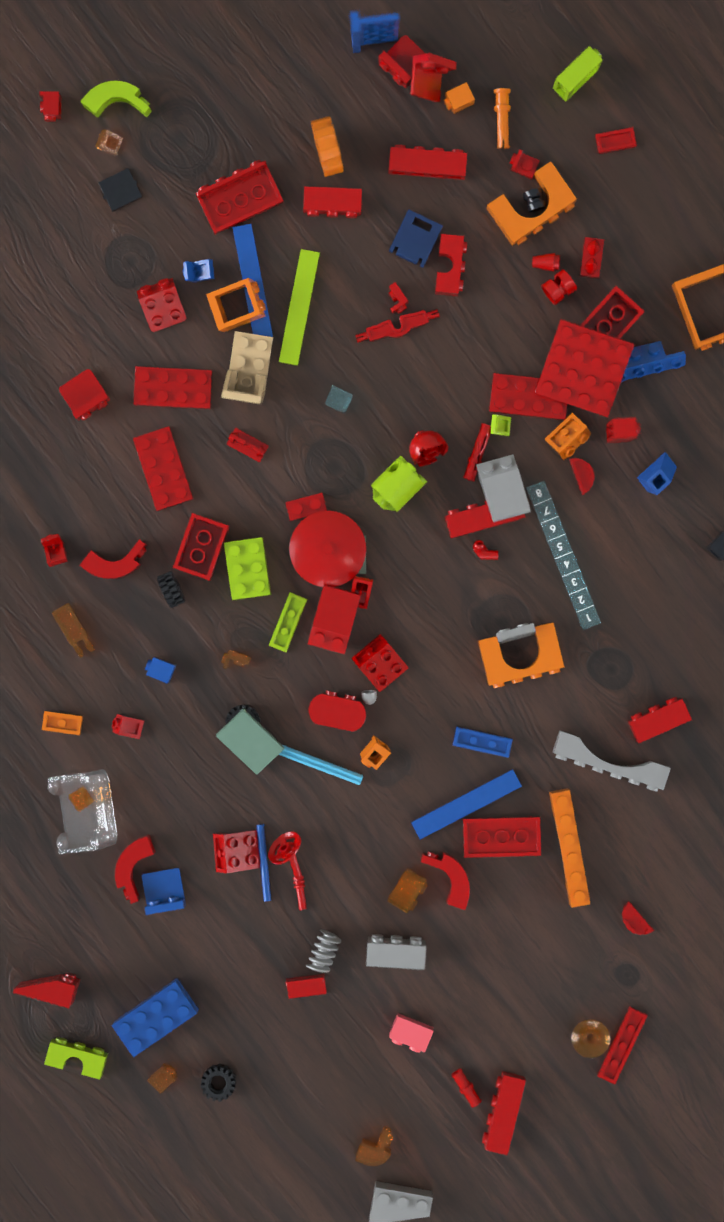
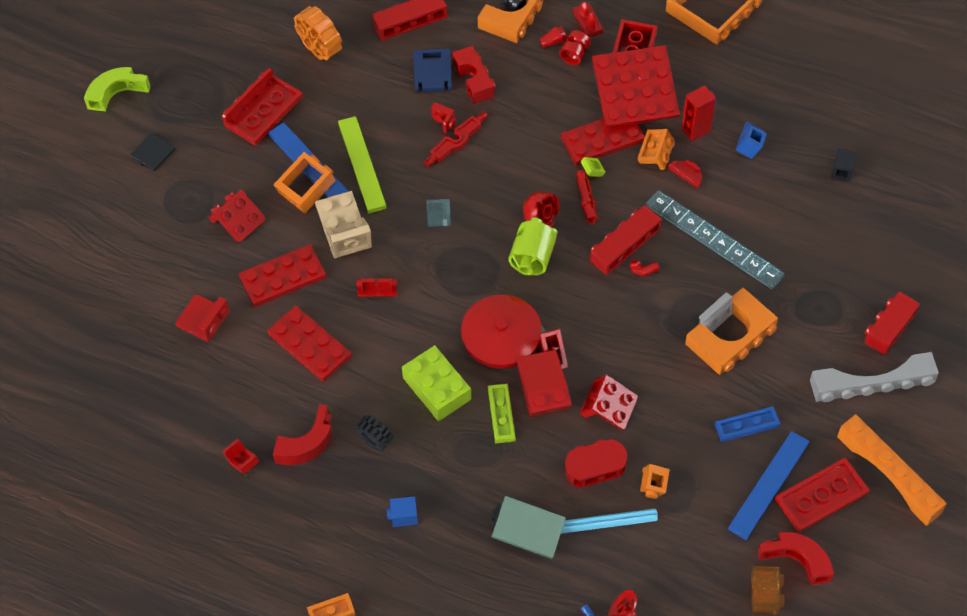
camera: 25 degrees left, 30 degrees down
(50, 105) = (58, 115): red brick -> none
(72, 628) = (295, 519): clear orange hinge -> none
(109, 142) = (124, 122): clear orange slope -> none
(127, 726) = (398, 580): red bracket -> none
(198, 270) = (256, 175): blue bracket -> none
(201, 546) = (382, 383): red brick -> none
(239, 659) = (473, 463): clear orange bracket -> none
(305, 506) = (455, 313): red plate -> none
(332, 201) = (345, 75): red brick -> none
(369, 696) = (617, 435): light grey hinge -> none
(503, 488) = (626, 204): light grey slope -> none
(651, 359) = (689, 63): blue bracket -> none

